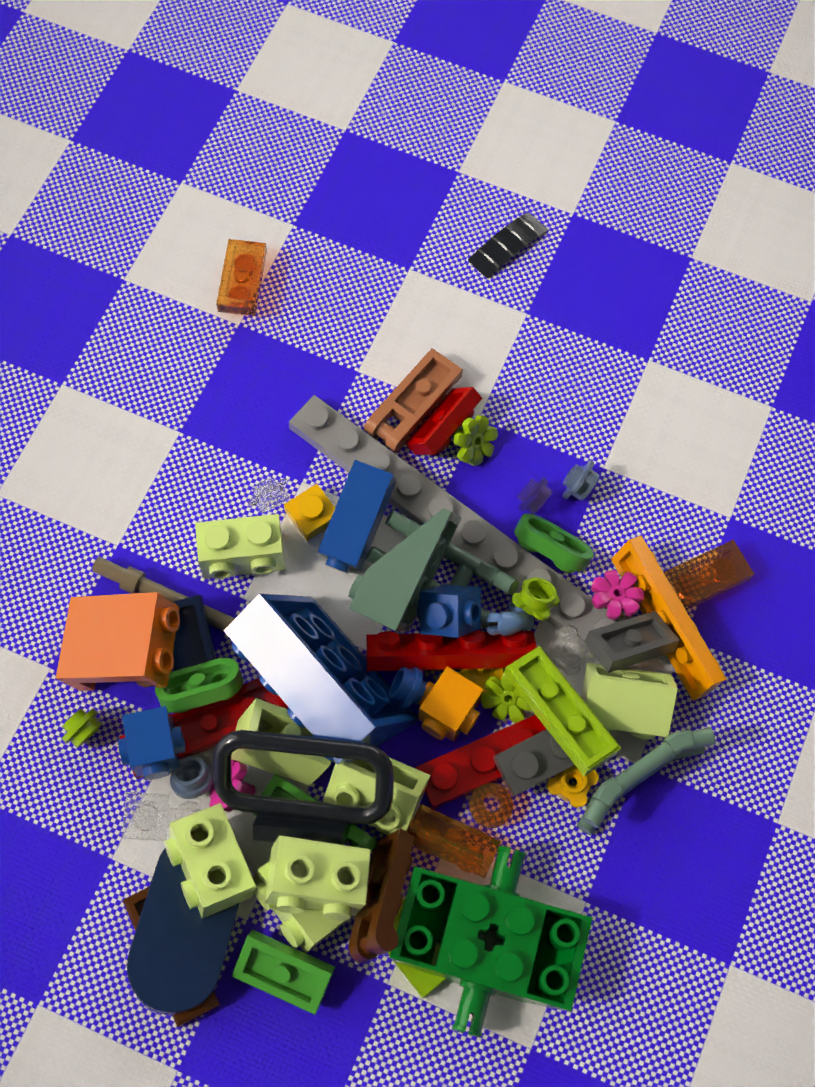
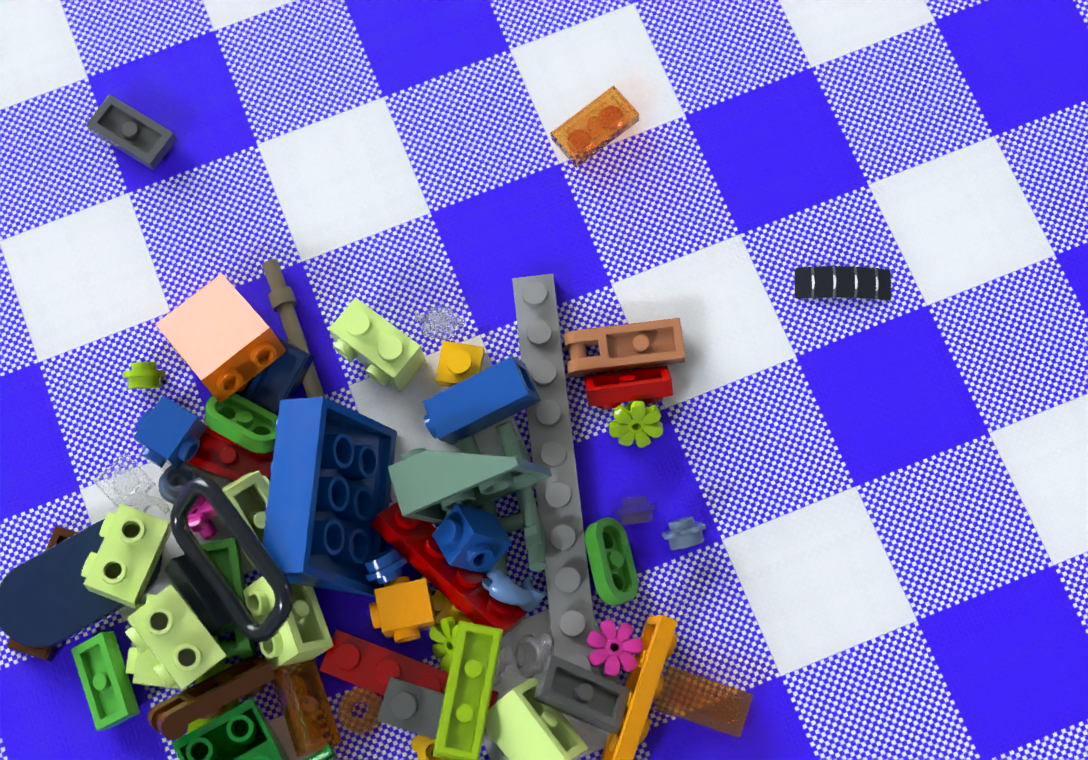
camera: 55 degrees right, 5 degrees up
(536, 598) = (555, 586): lime plate -> none

